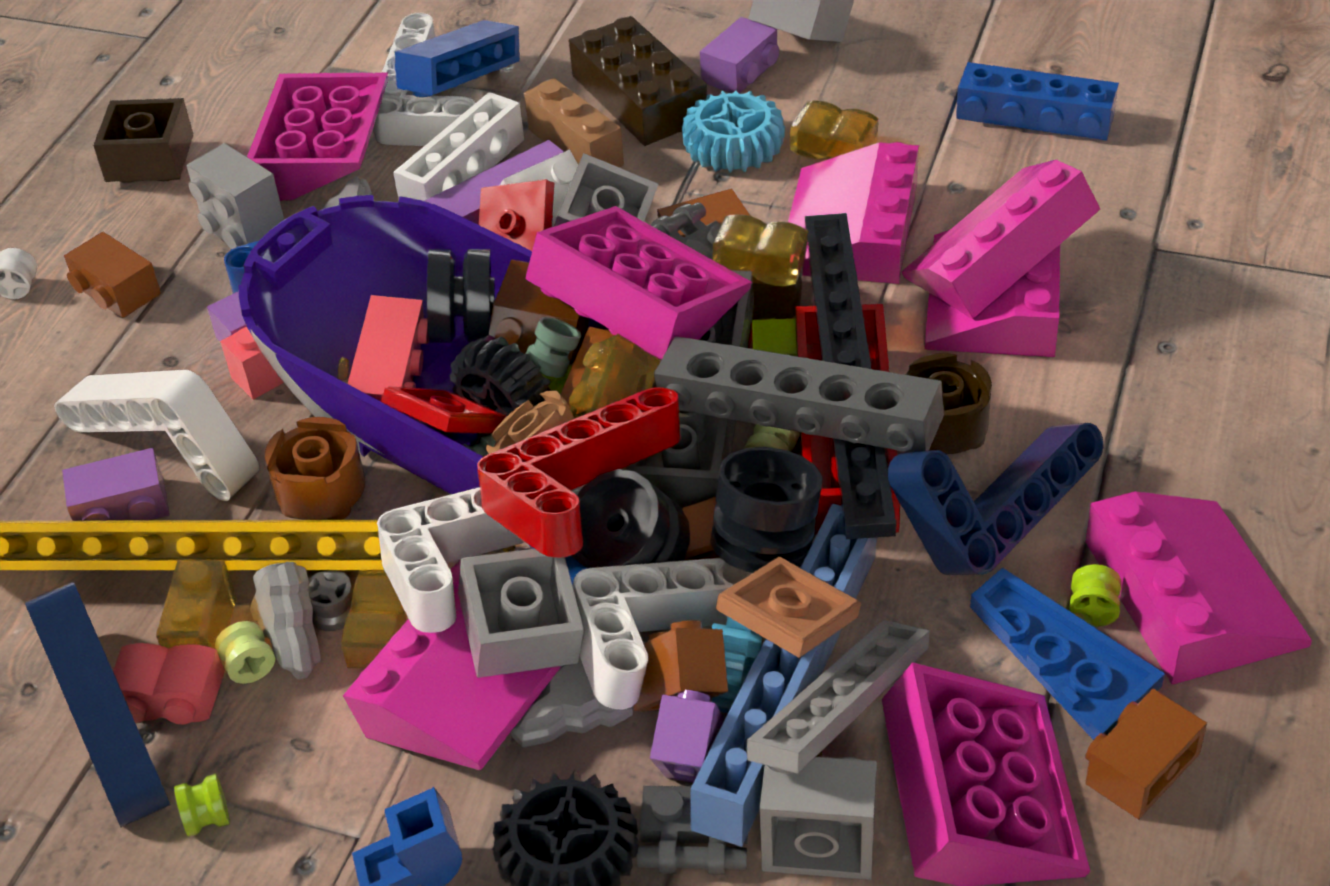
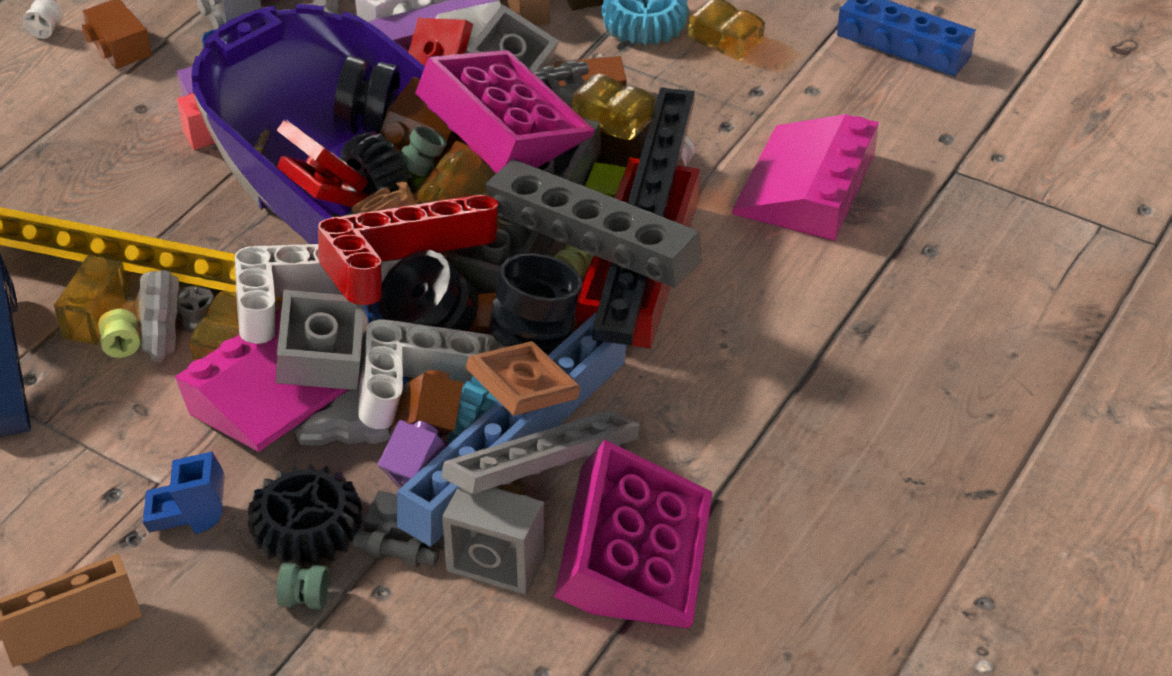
camera: 10 degrees right, 0 degrees up
(117, 489) = (66, 195): medium lavender brick -> none
(169, 682) = (56, 343): coral brick -> none
(170, 403) = (126, 143): white beam -> none
(202, 805) = (50, 434): lime wheel -> none
(315, 469) = (217, 210): dark orange brick -> none
(389, 345) = (308, 111): coral brick -> none
(434, 378) = (320, 157): none -> red plate
(878, 195) = (730, 92): dark pink slope -> none
(965, 400) = (728, 259): dark brown brick -> none
(979, 534) = (733, 341): dark blue beam -> none
(1004, 236) = (820, 136): dark pink slope -> none
(1068, 656) = (743, 469): blue wing -> none
(1096, 594) = (781, 425): lime wheel -> none
(1144, 752) = (769, 548): dark orange brick -> none
(1191, 584) = (864, 432): dark pink slope -> none

